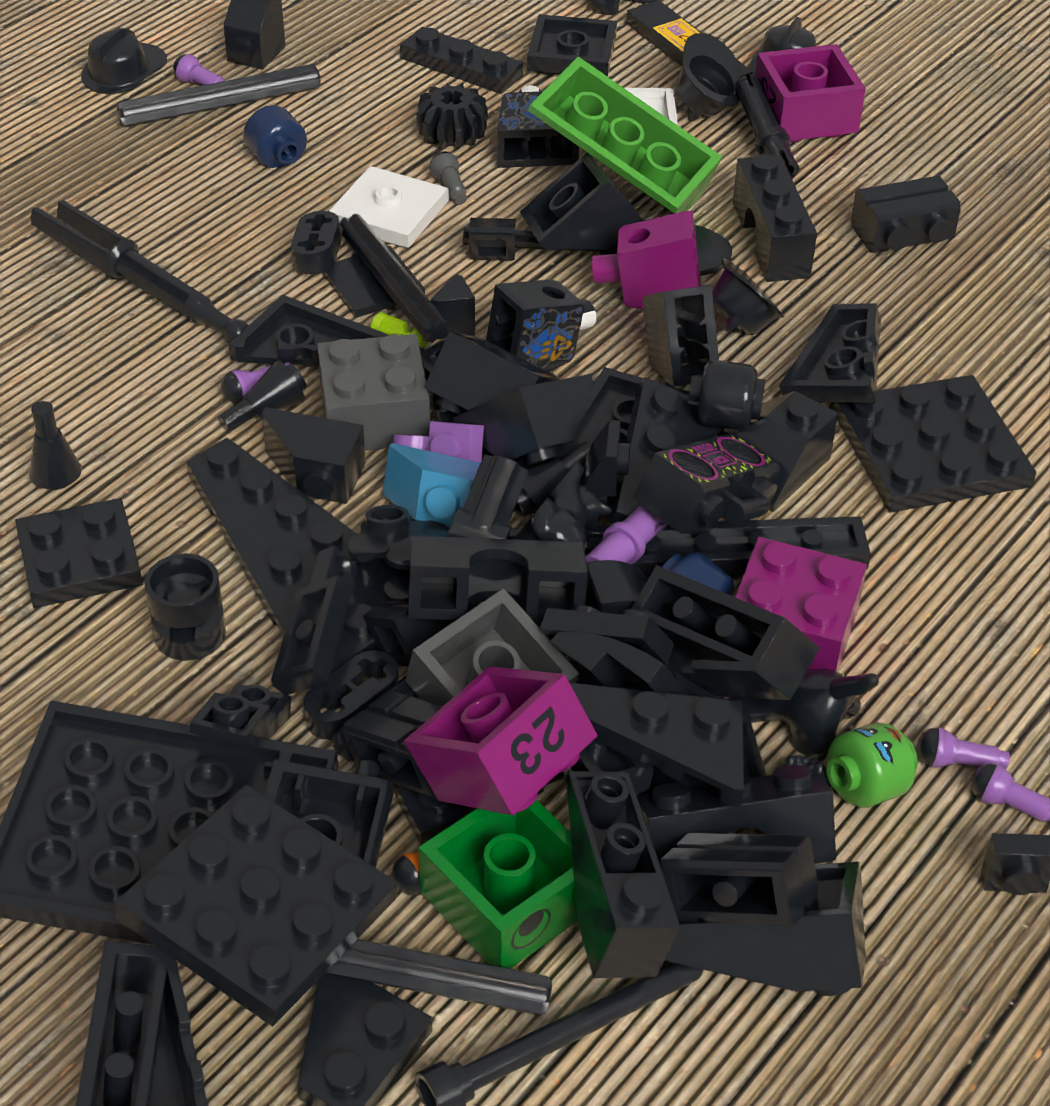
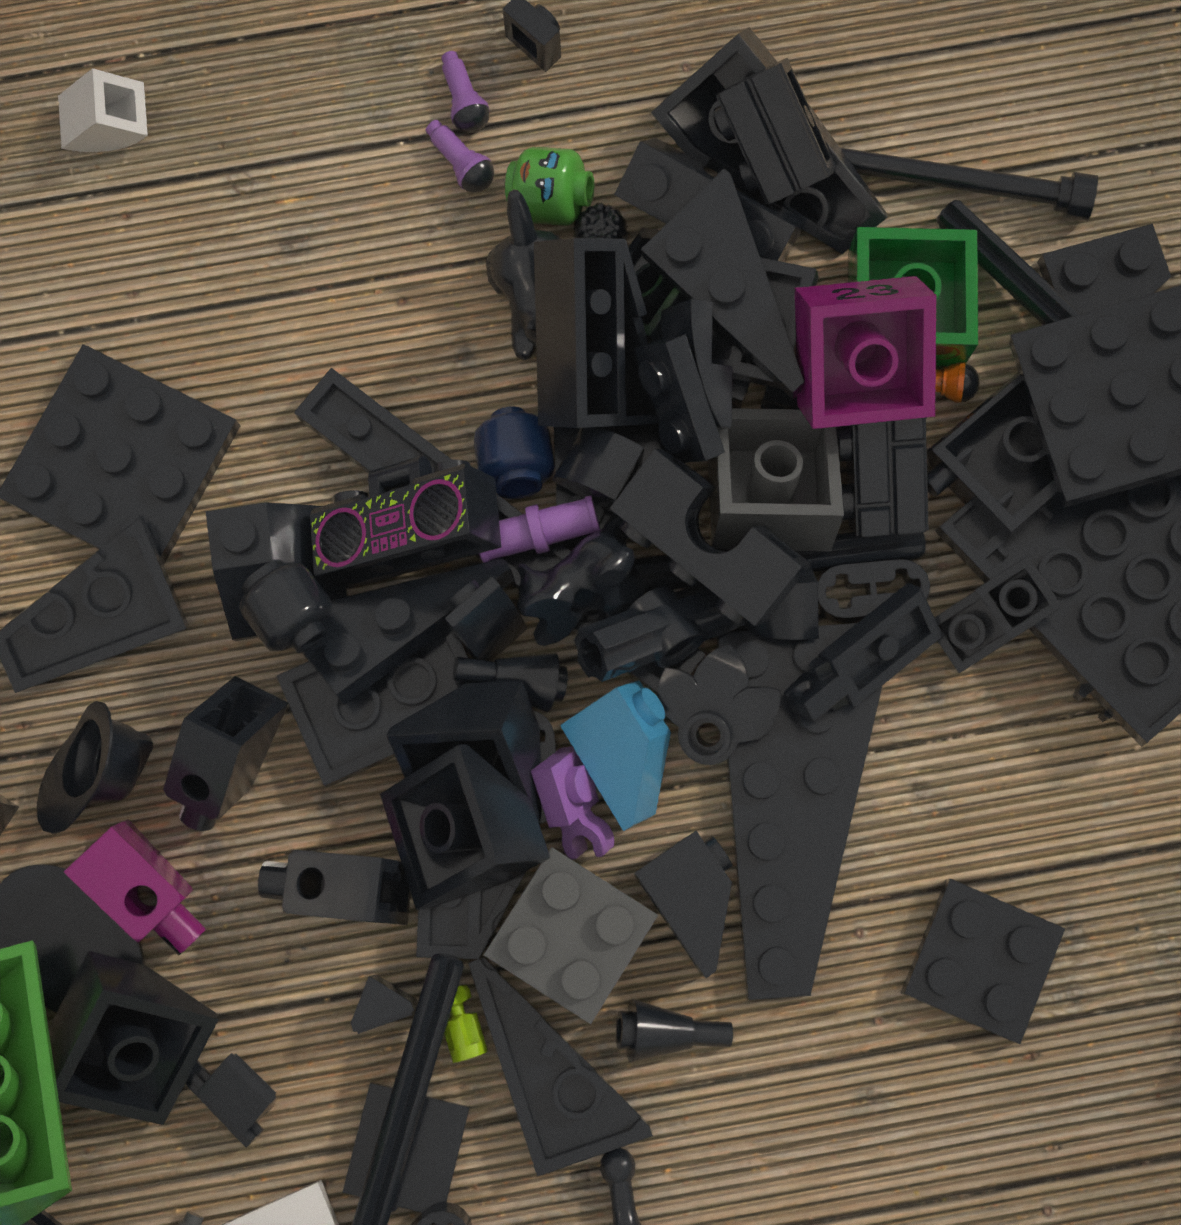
camera: 135 degrees left, 35 degrees up
(52, 459) = (934, 1097): black cone -> none
(185, 606) = (954, 780): black wheel -> none
(238, 383) = (674, 1077): piece -> none
(617, 878) = (868, 190): black slope -> none
(809, 590) = (455, 361): magenta brick -> none

